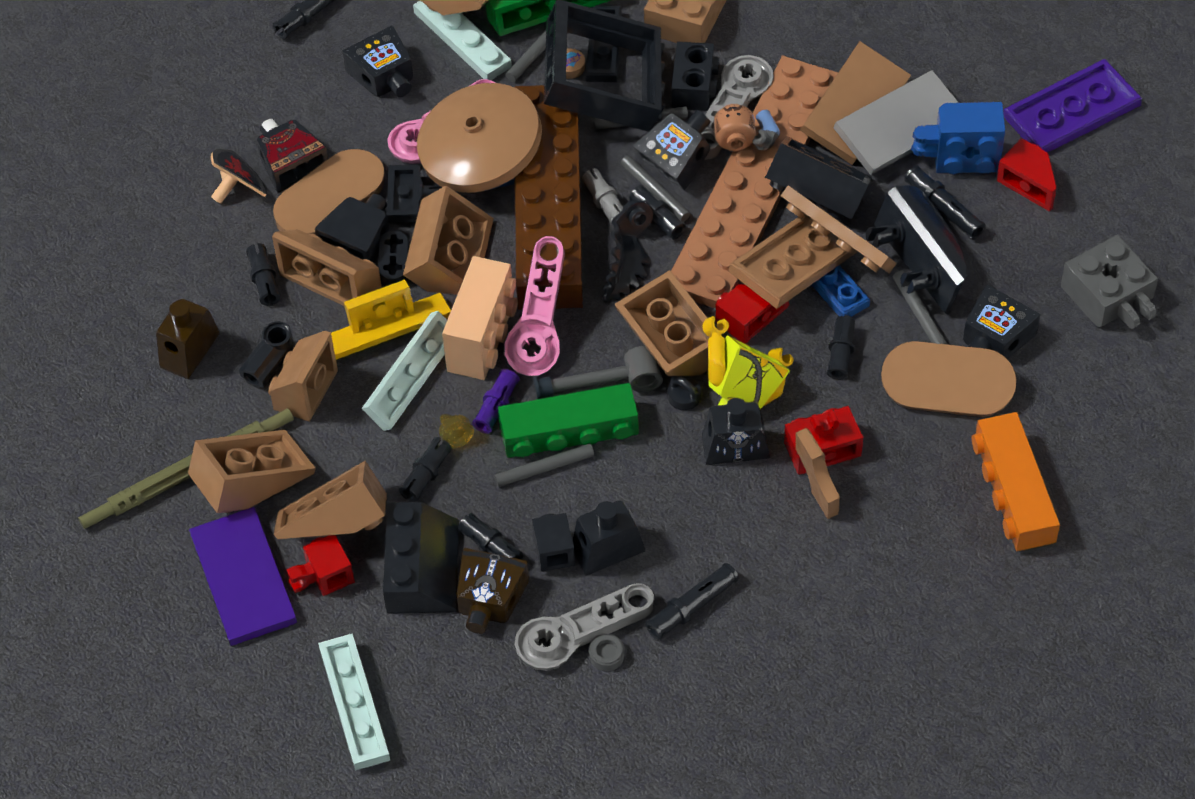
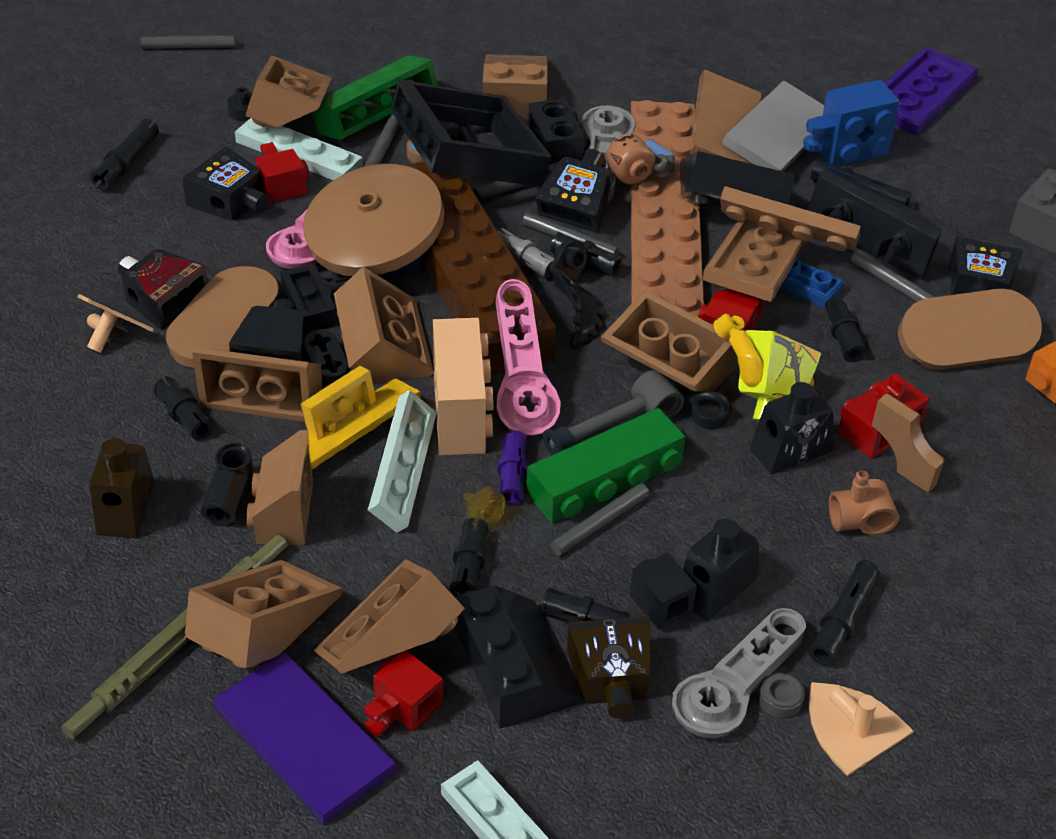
camera: 25 degrees left, 10 degrees down
(432, 61) = (282, 173): none -> red brick
(650, 692) = (853, 725): none -> light nougat shield
(757, 517) = (863, 507): none -> nougat piece
(1028, 173) = (926, 145): red slope -> none

